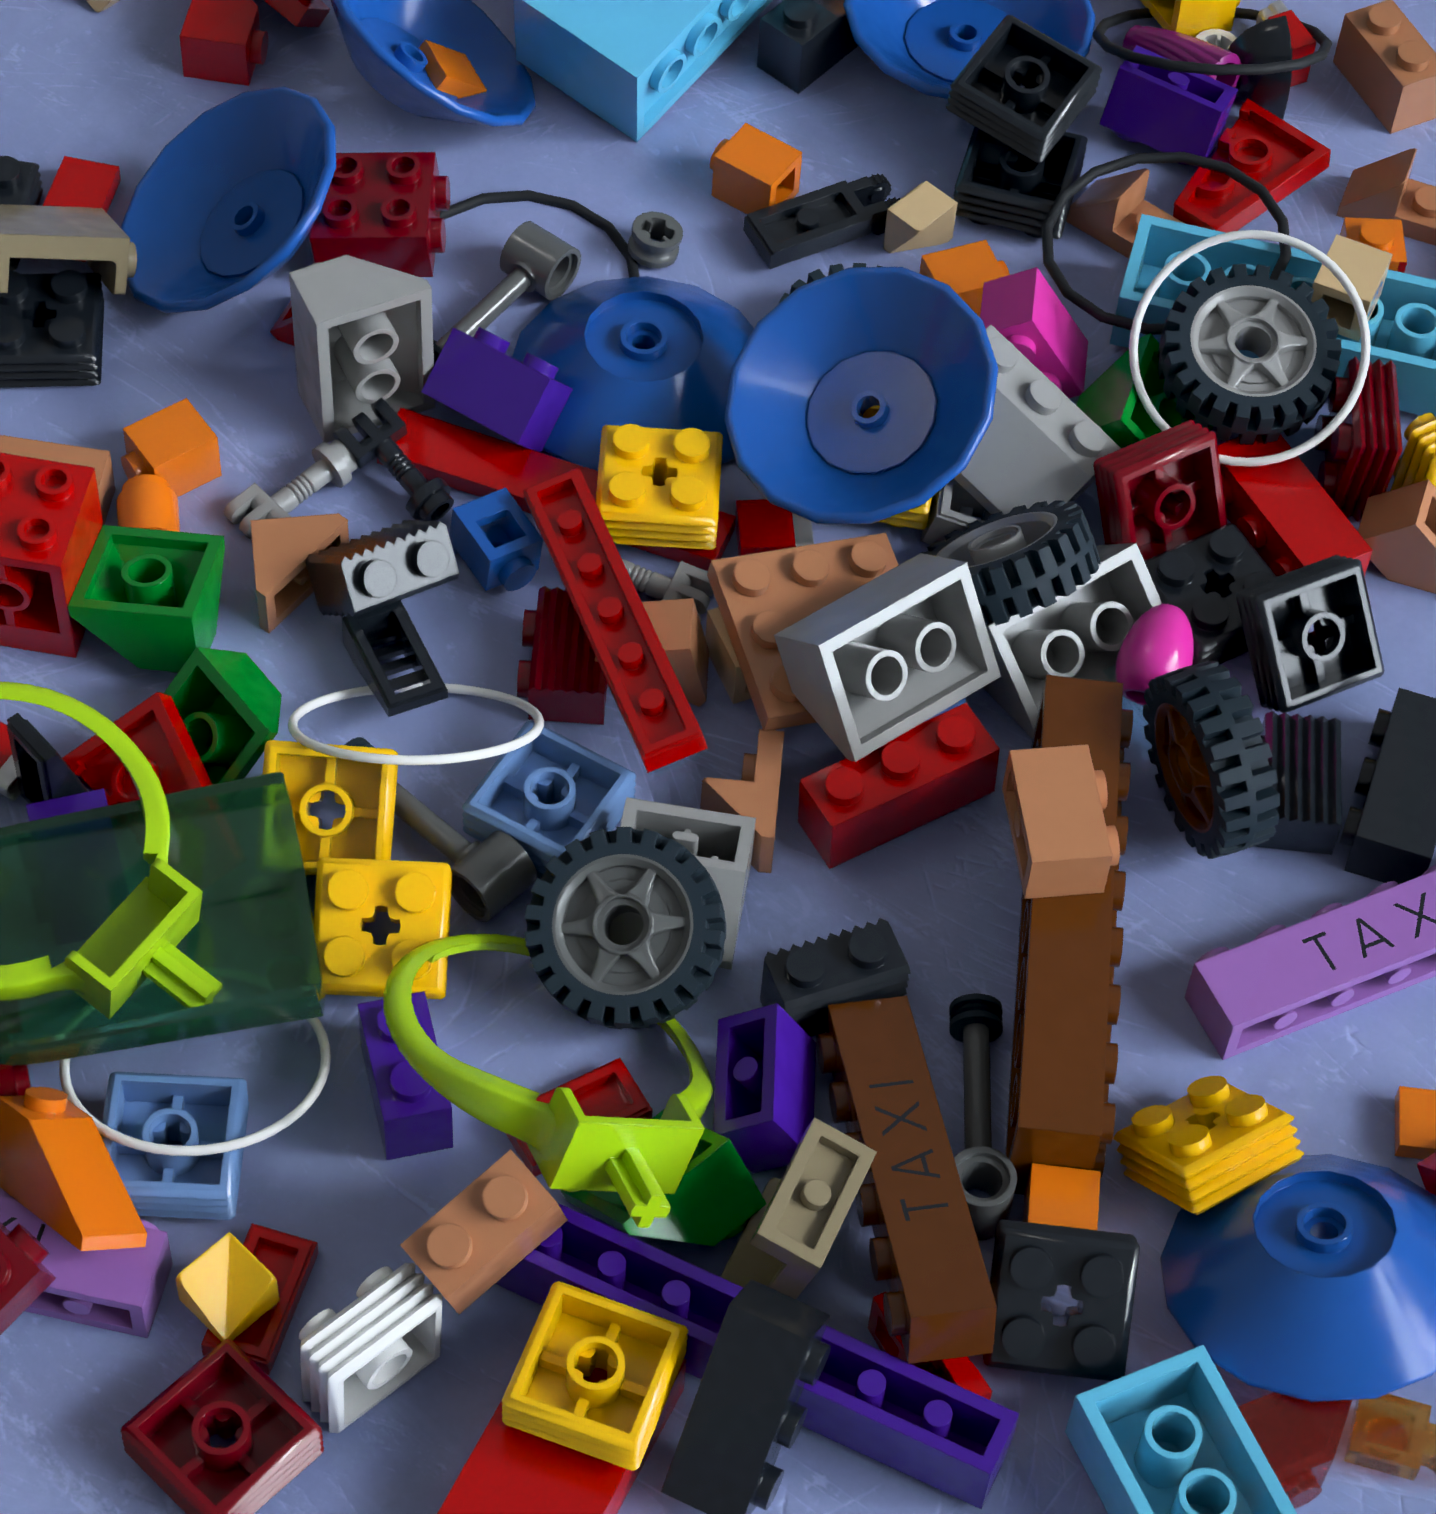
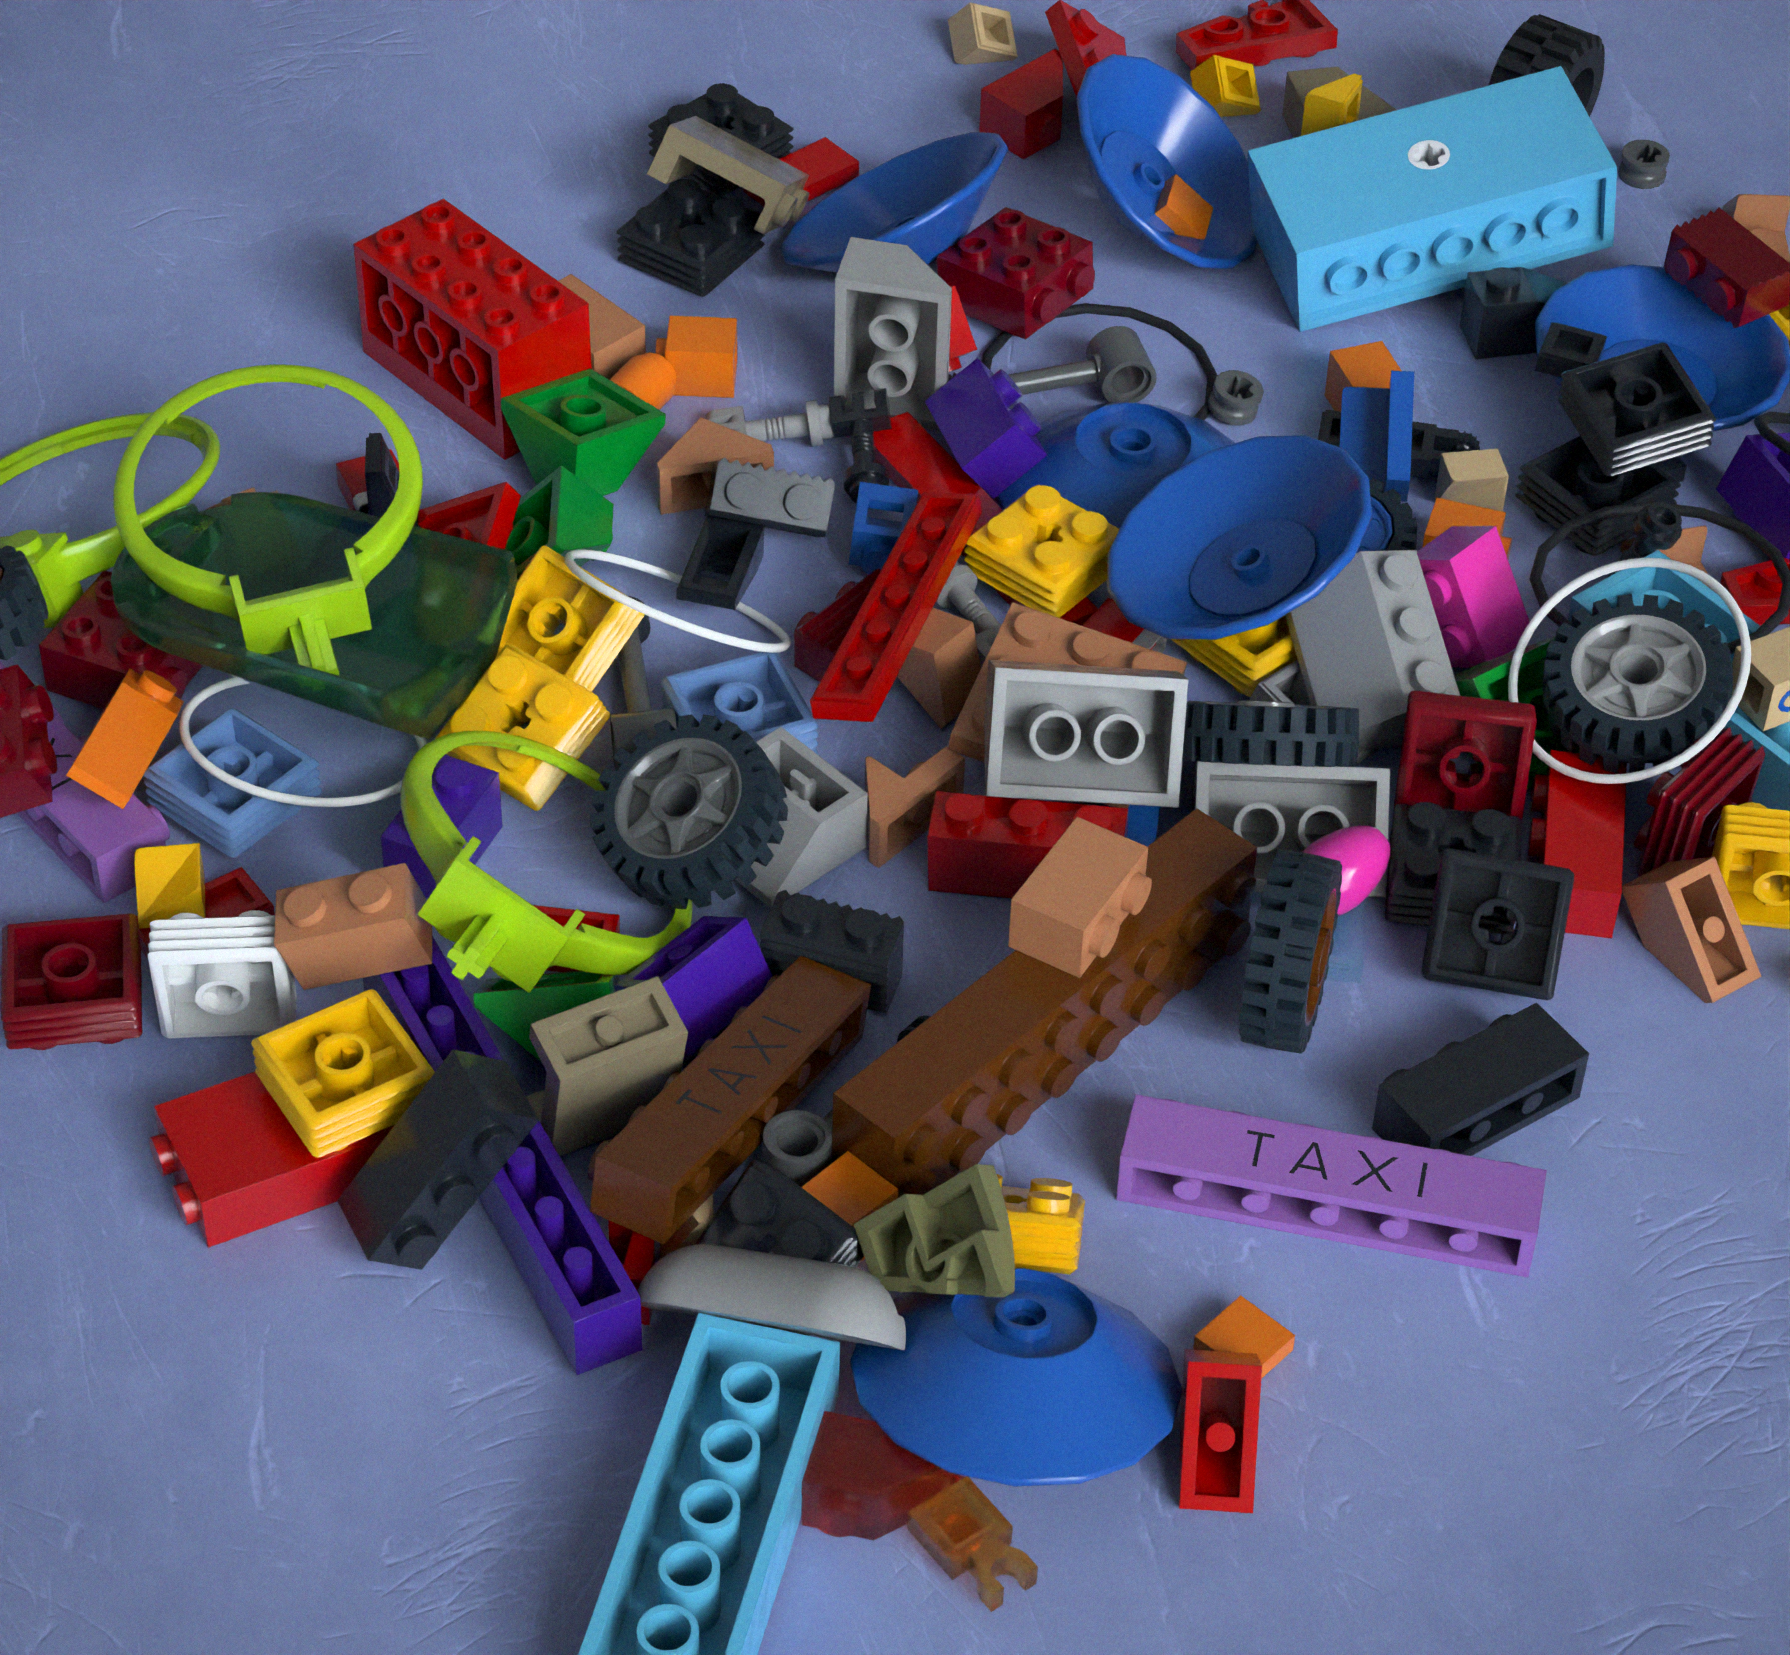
camera: 40 degrees right, 10 degrees down
(827, 217) = (1379, 430): none -> blue panel
(918, 58) = (1568, 349): none -> black tile
(1102, 246) = (1656, 529): none -> black hinge
(1118, 1340) = (775, 1293): none -> light grey brick
(1220, 1203) = (944, 1240): none -> olive slope
(1309, 781) = (1383, 1027): black brick -> none

